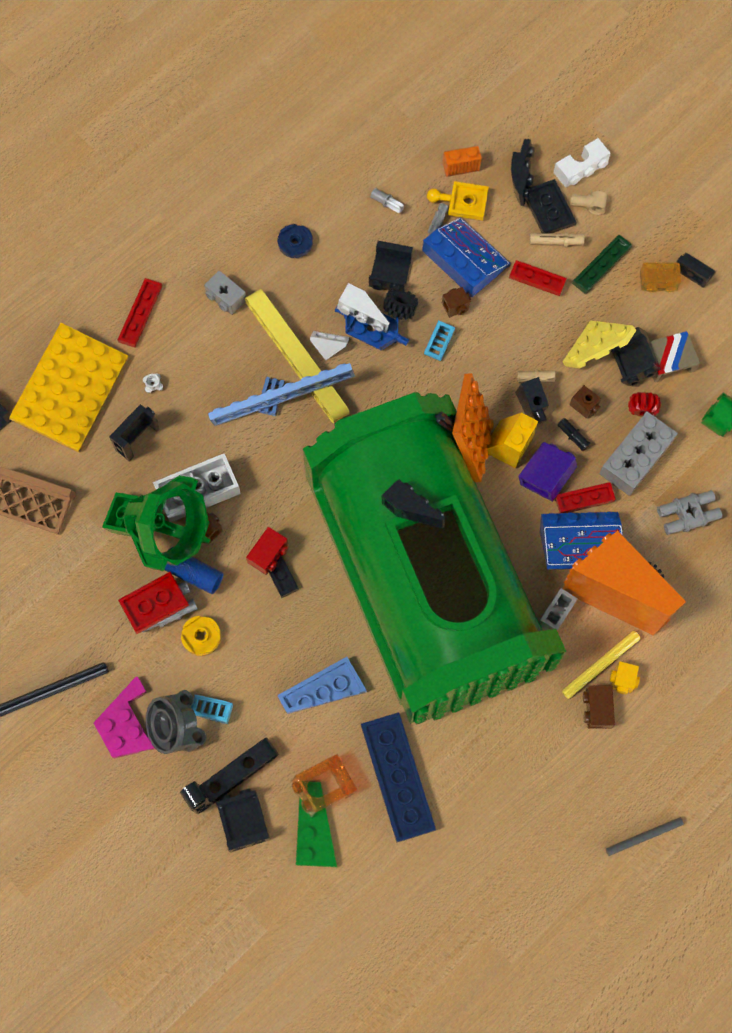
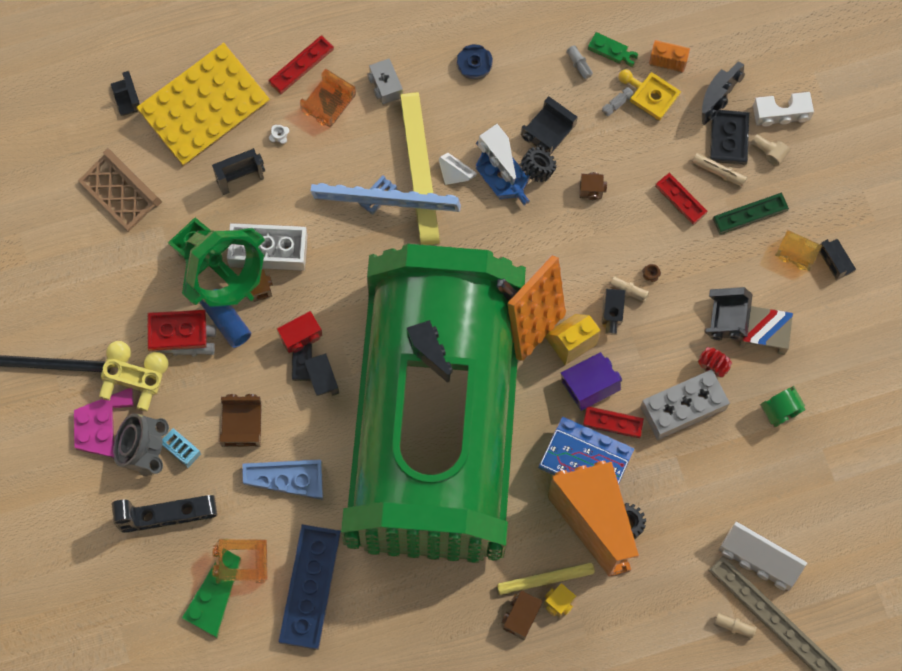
camera: 25 degrees right, 0 degrees up
(131, 665) = (131, 375): none -> light yellow piece
(181, 331) = (328, 99): none -> clear orange panel
(202, 624) = (201, 389): yellow plate -> none
(242, 820) = (157, 556): black panel -> none
(254, 657) = (241, 421): none -> reddish brown panel
(307, 580) = (321, 375): none -> black panel
(408, 178) = (611, 49): none -> green plate
(445, 327) = (564, 201): medium azure slope -> none
(464, 255) = (624, 146): blue slope -> none
(546, 349) = (651, 268): none -> reddish brown plate
(557, 610) = (529, 511): light grey brick -> none
(573, 434) = (635, 360): black axle -> none
(585, 402) = (661, 334): reddish brown brick -> none
(597, 341) = (702, 282): light yellow plate -> none
(686, 520) = (696, 489): light grey pin -> none

